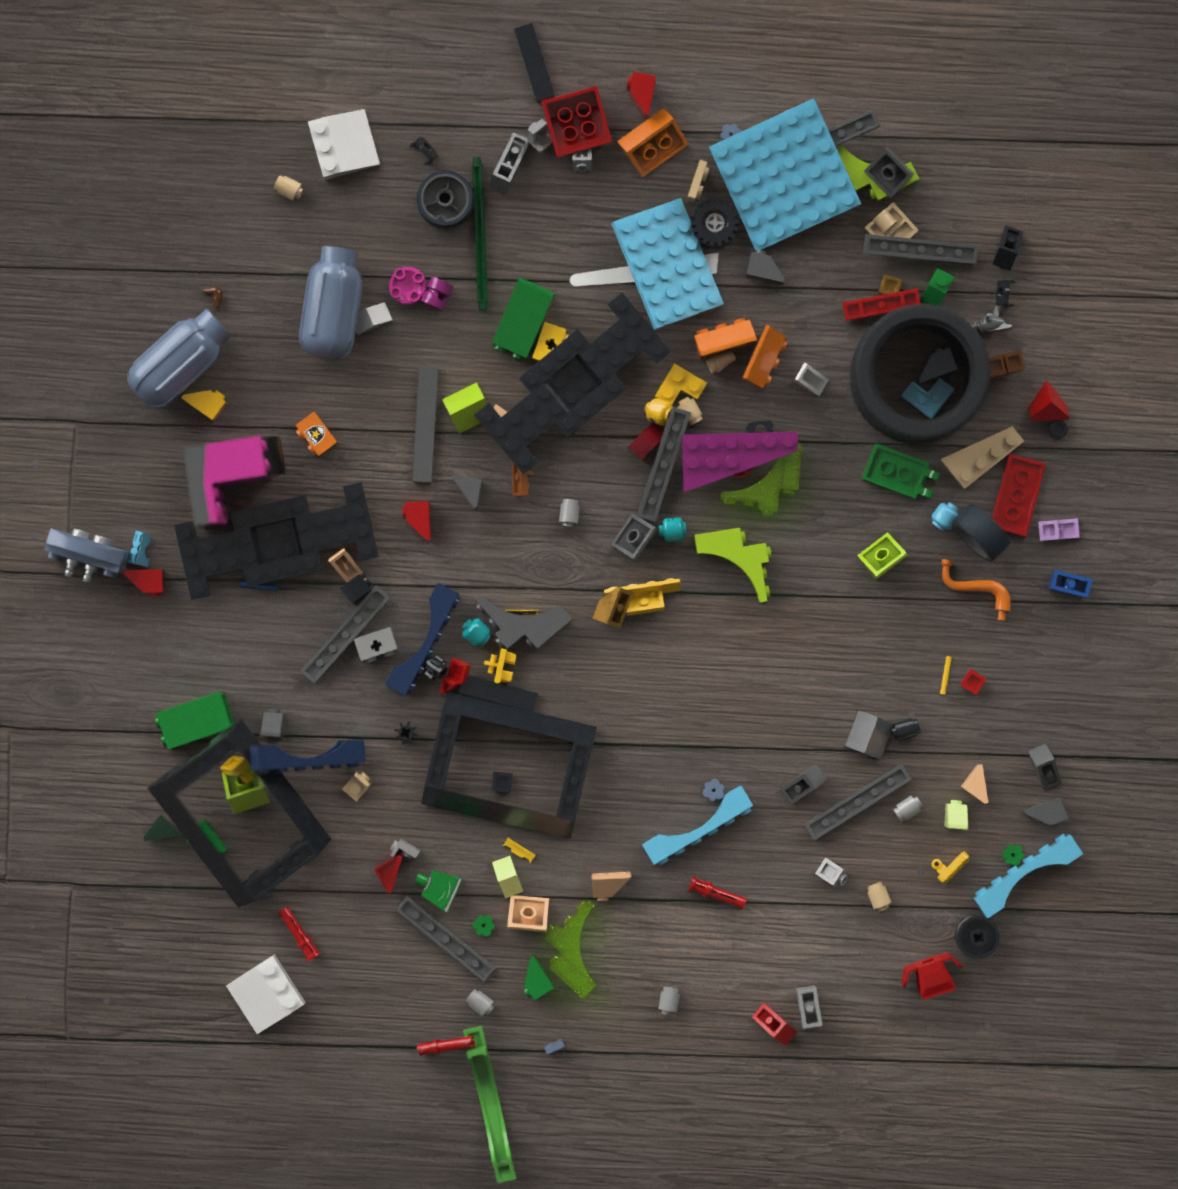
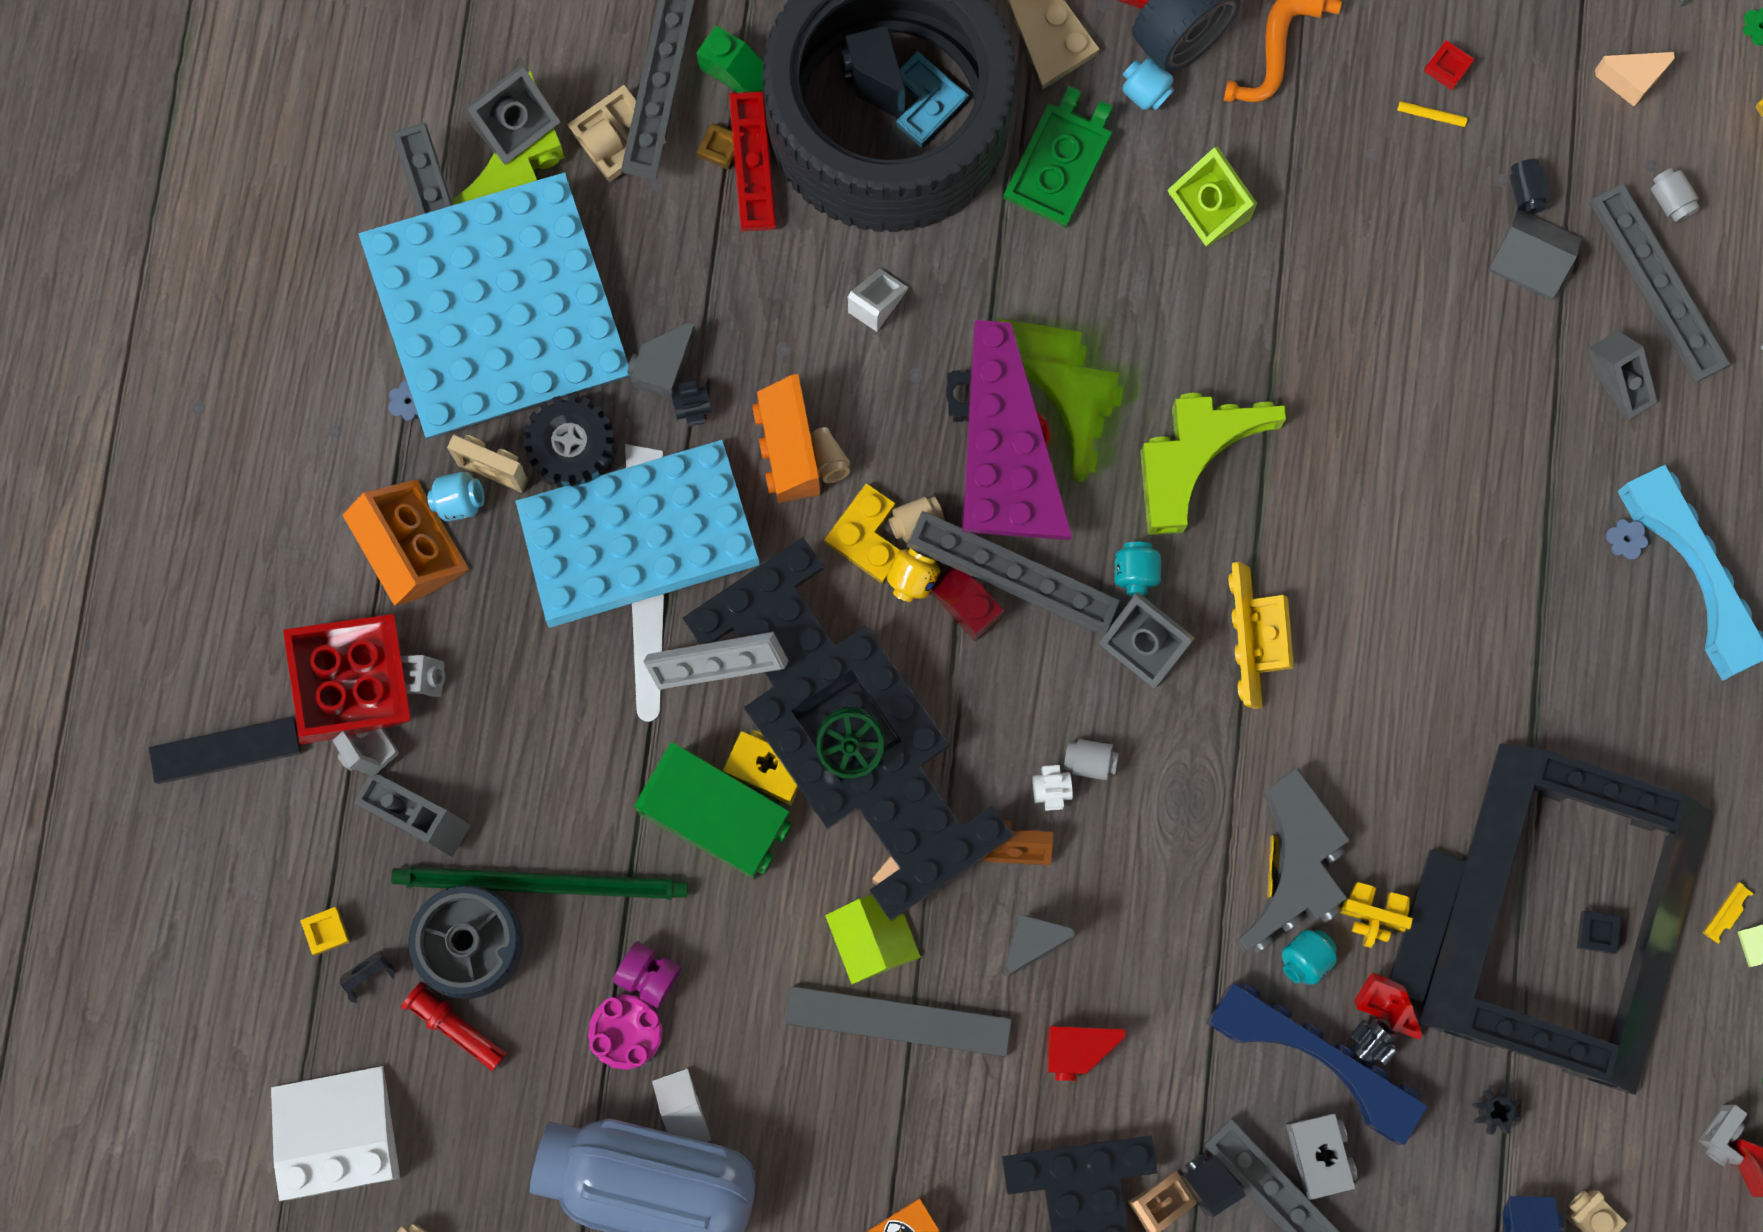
camera: 85 degrees left, 10 degrees down
(407, 190) = (441, 1017): none -> red pin
(445, 126) = (325, 931): none -> yellow plate
(552, 493) = (1052, 787): none -> white gear
(561, 385) = (850, 742): none -> dark green wheel
(600, 312) = (716, 661): none -> light grey tile
(613, 607) = (1279, 690): pearl gold slope -> none
(641, 91) = (308, 550): red slope -> none
(679, 166) = (456, 496): none -> medium azure head
(741, 285) = (691, 403): none -> black gear
(765, 358) = (830, 374): orange slope -> none
(956, 815) = (1695, 110): yellowish green slope -> none

